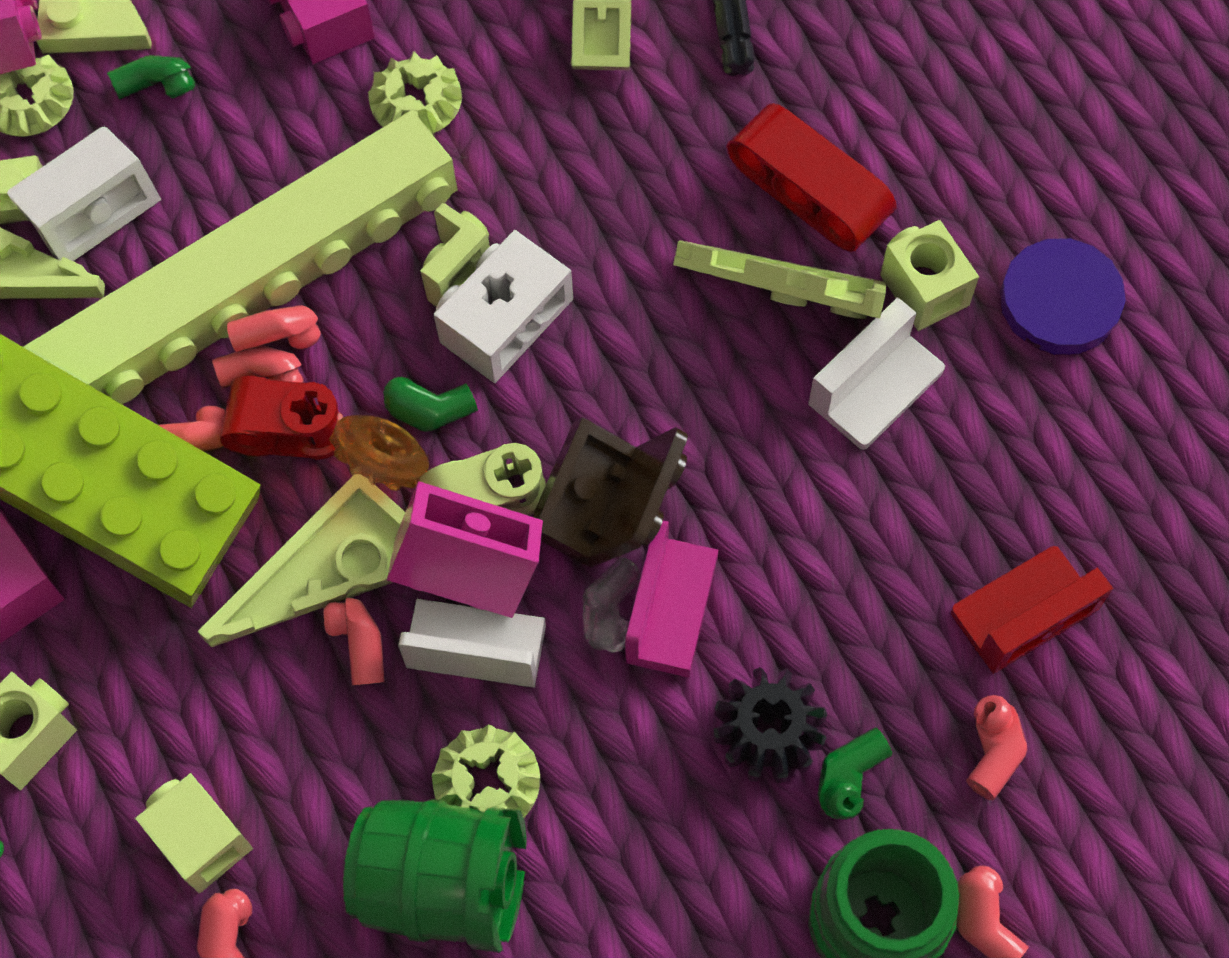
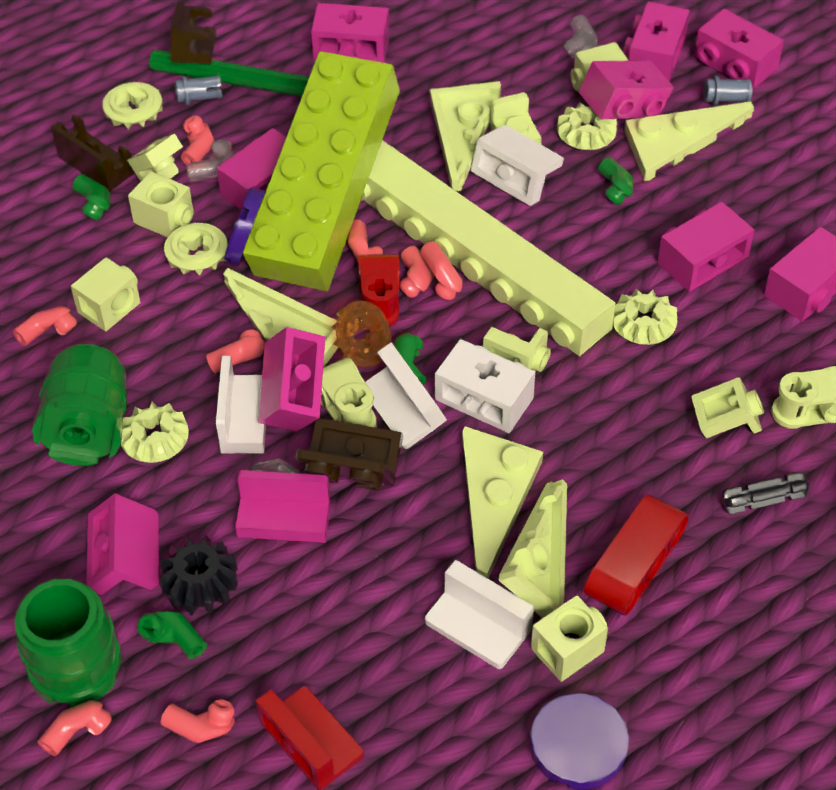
camera: 80 degrees right, 15 degrees down
(117, 658) = (190, 237): none -> yellowish green gear
(128, 587) = (244, 225): none -> dark purple tile
(512, 408) = (403, 399): none -> white panel
(667, 323) = (498, 484): none -> yellowish green wing
(696, 838) = (122, 545): none -> dark pink panel

